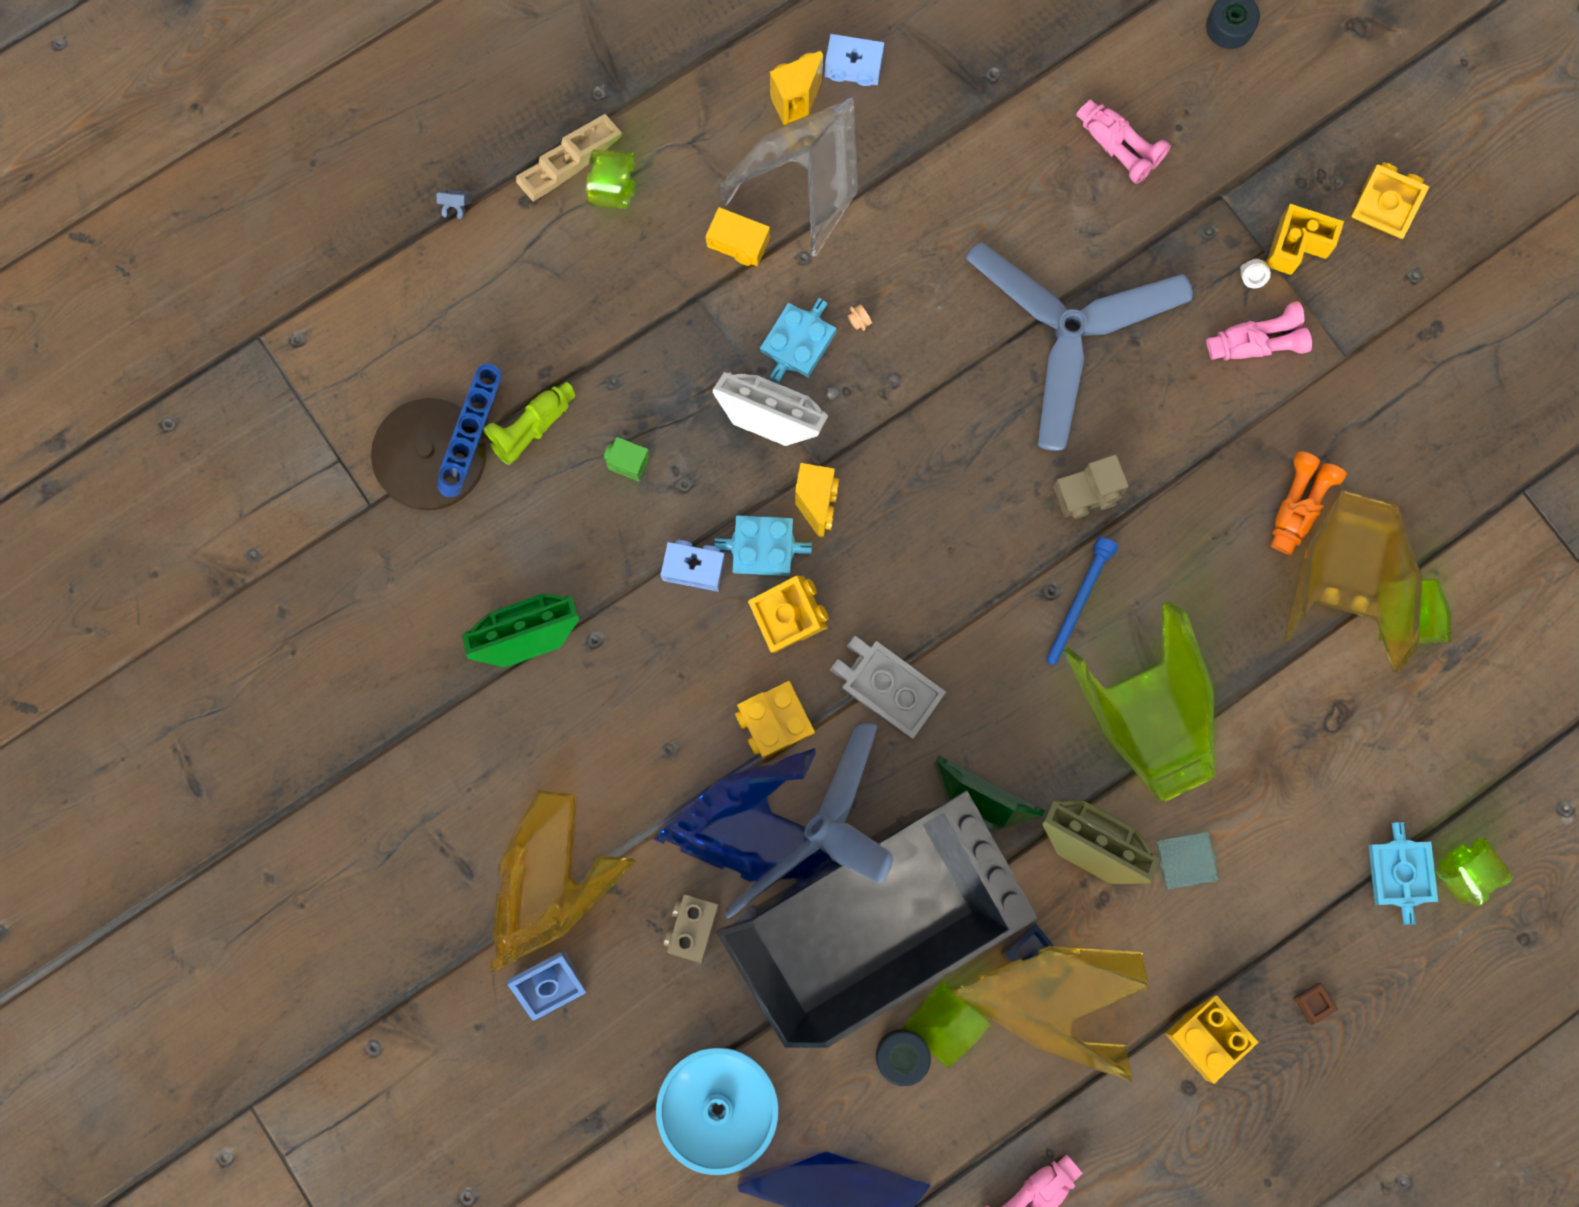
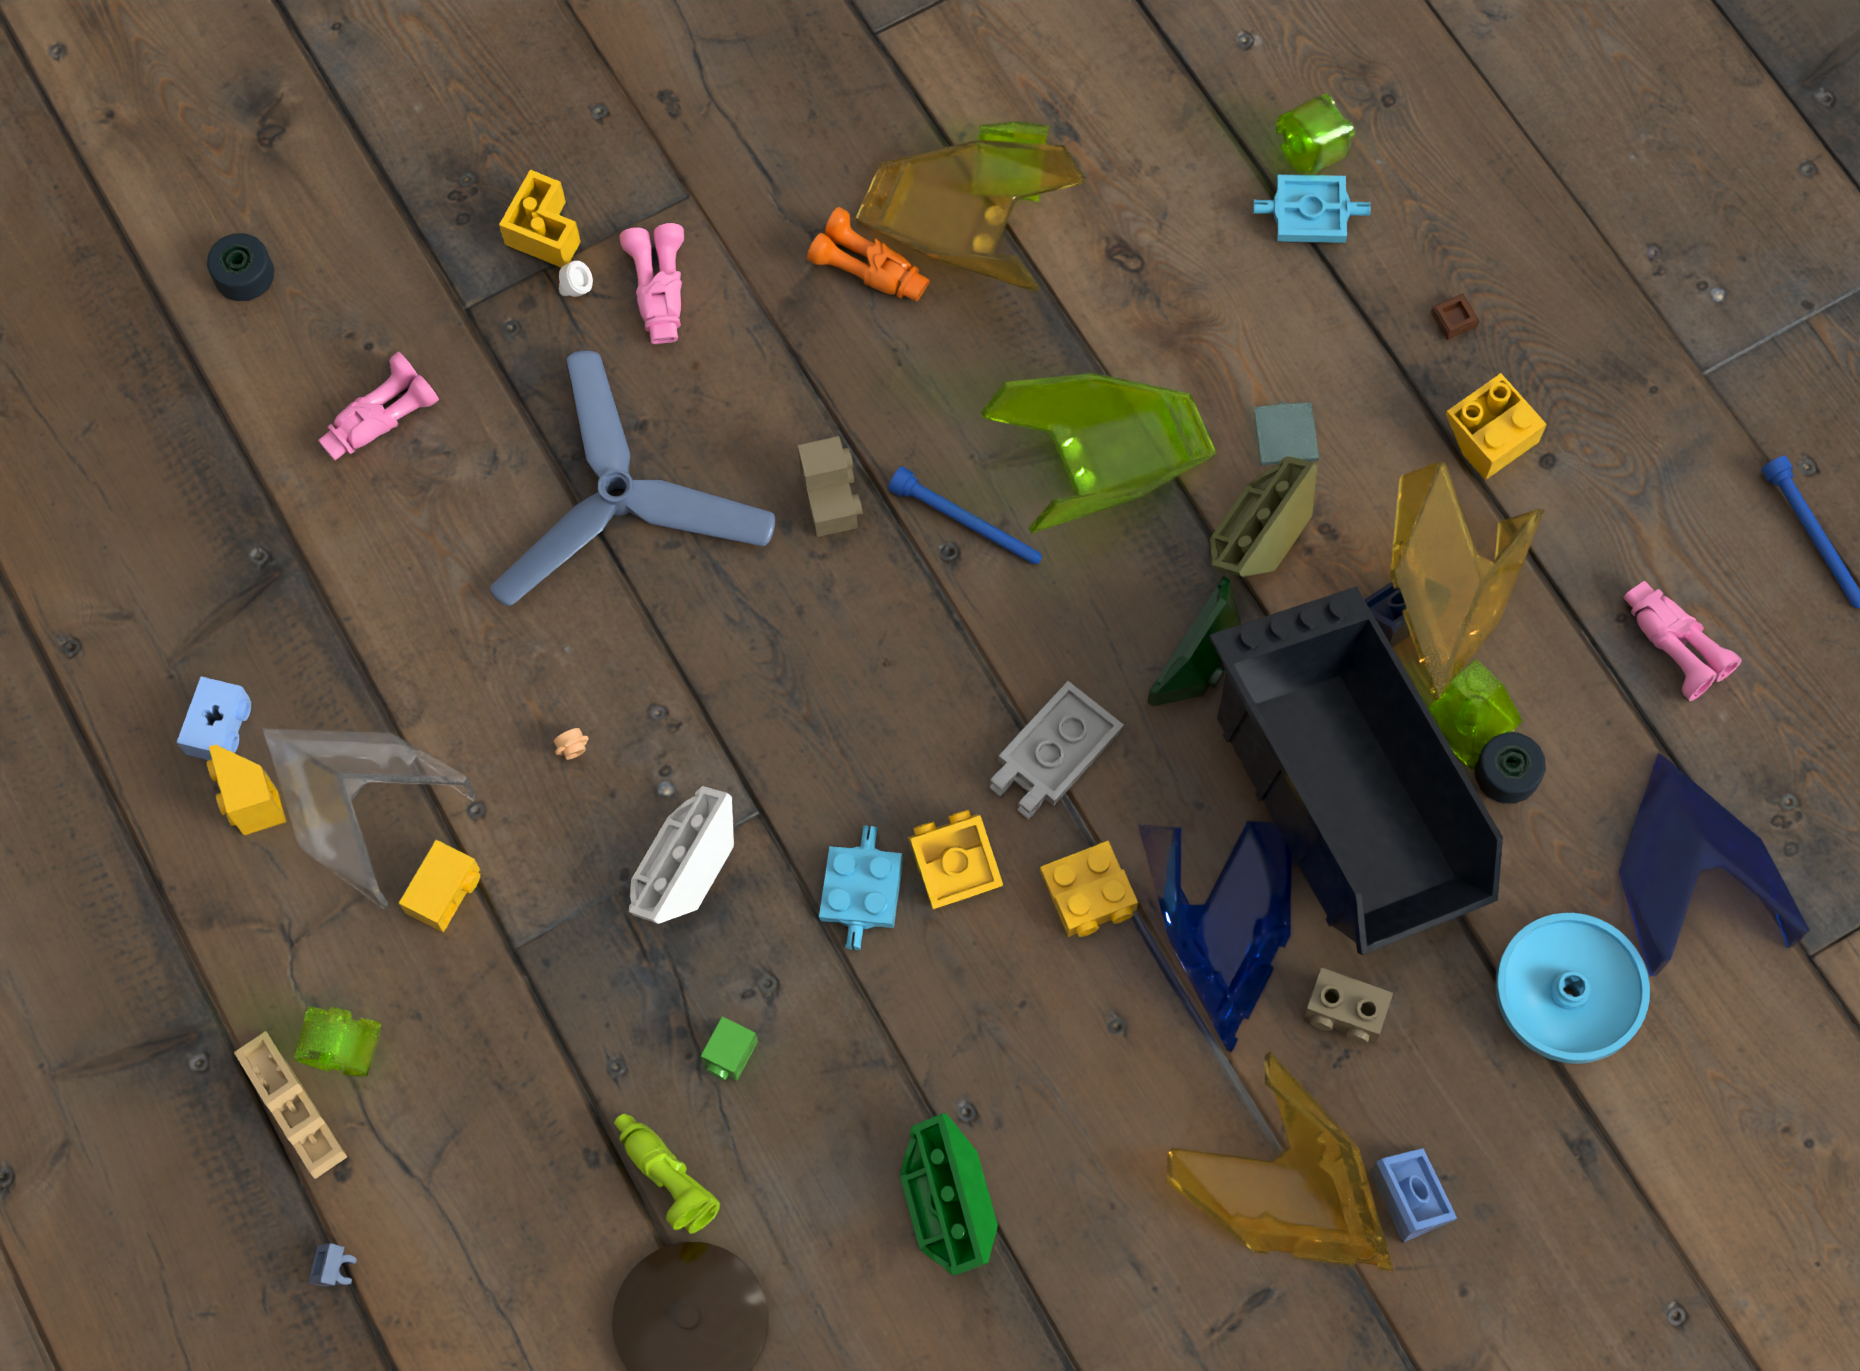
camera: 85 degrees left, 10 degrees down
(464, 441) = (681, 1264): blue beam -> none
(677, 570) = (882, 995): light blue brick -> none
(798, 340) = (590, 822): medium azure plate -> none
(813, 495) = (809, 810): yellow slope -> none
(828, 827) = (1244, 815): sand blue piece -> none
(1390, 200) = (504, 122): yellow plate -> none

